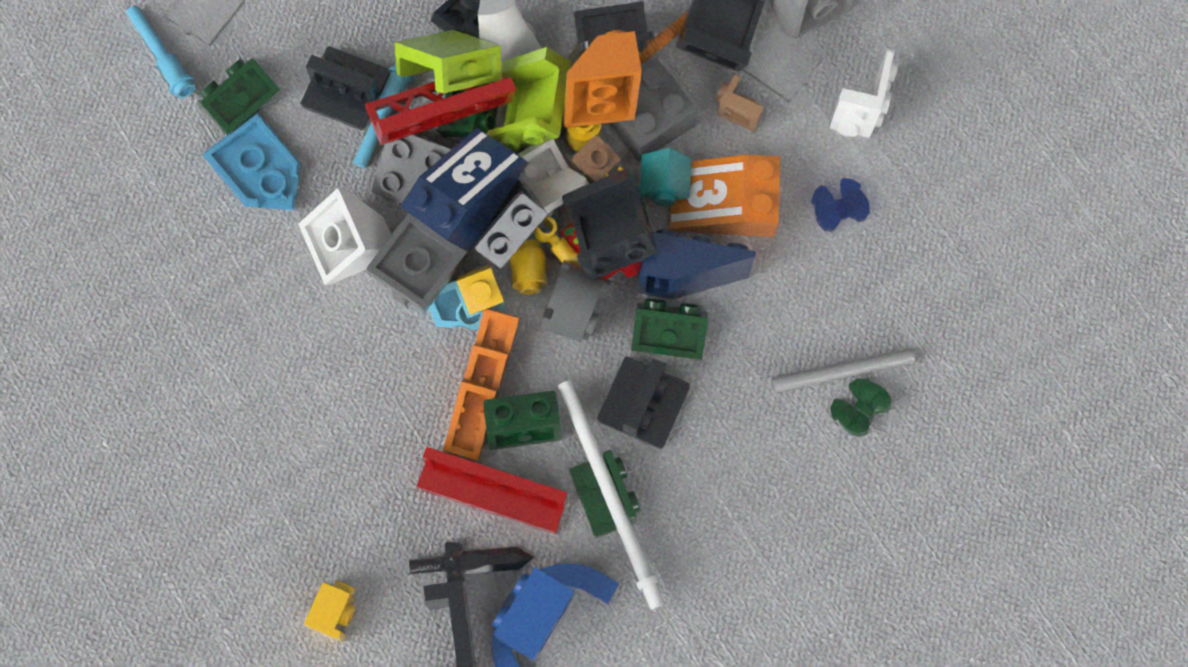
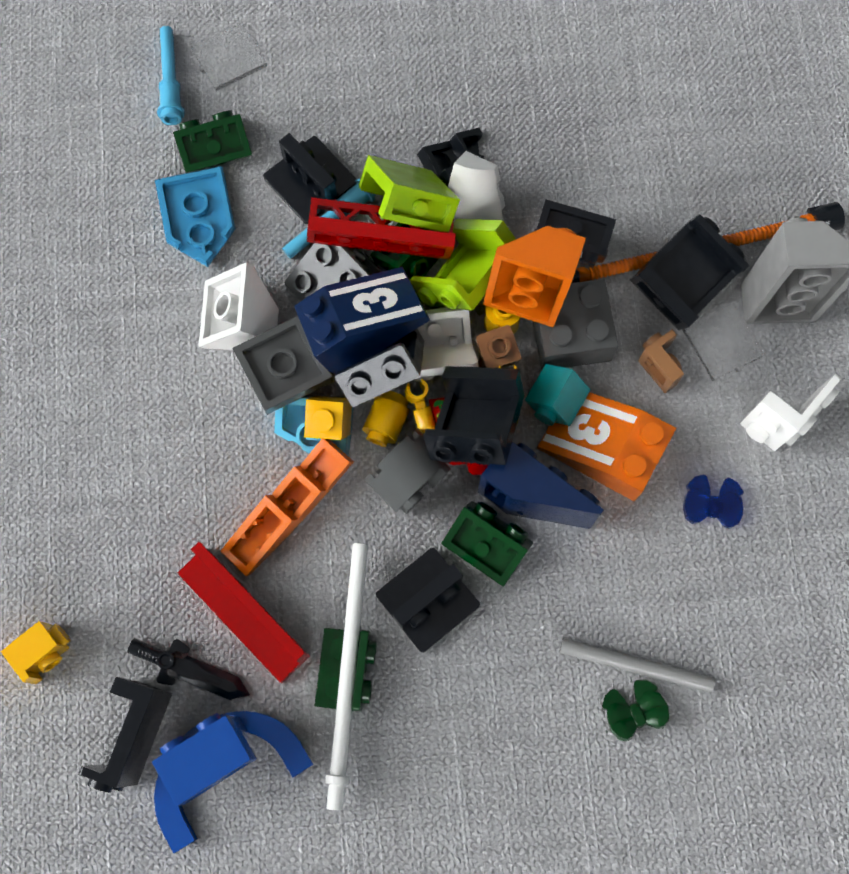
camera: 30 degrees right, 0 degrees up
(522, 420) = (303, 559): dark green bracket -> none

